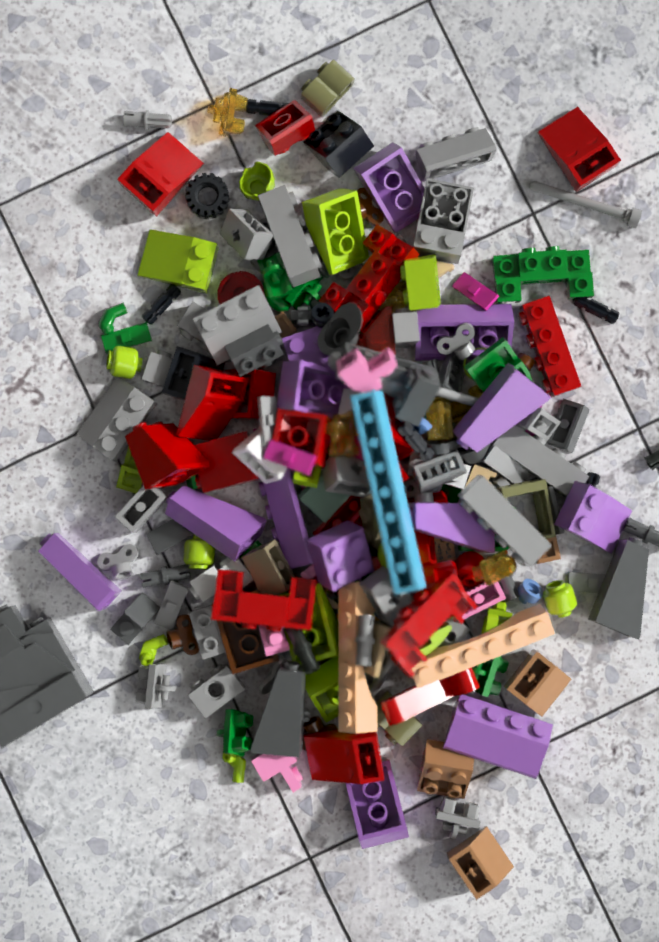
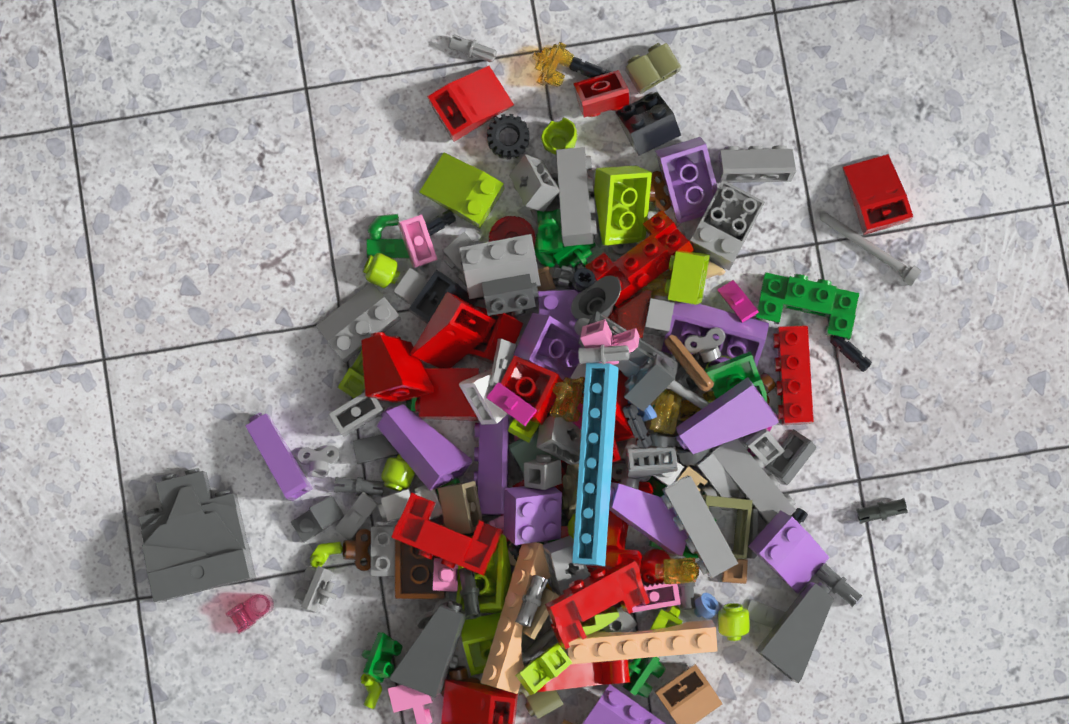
camera: 25 degrees right, 5 degrees down
(95, 728) = (246, 613): none -> clear pink piece
(150, 323) = (417, 241): none -> bright pink slope
(205, 700) = (363, 621): light grey brick -> none
(338, 513) = (542, 472): none -> light grey brick
(365, 383) = (603, 354): none -> light grey axle
(395, 701) = (543, 668): none -> lime slope
(444, 550) = (635, 540): medium nougat tile -> none
(447, 365) = (689, 363): none -> medium nougat axle

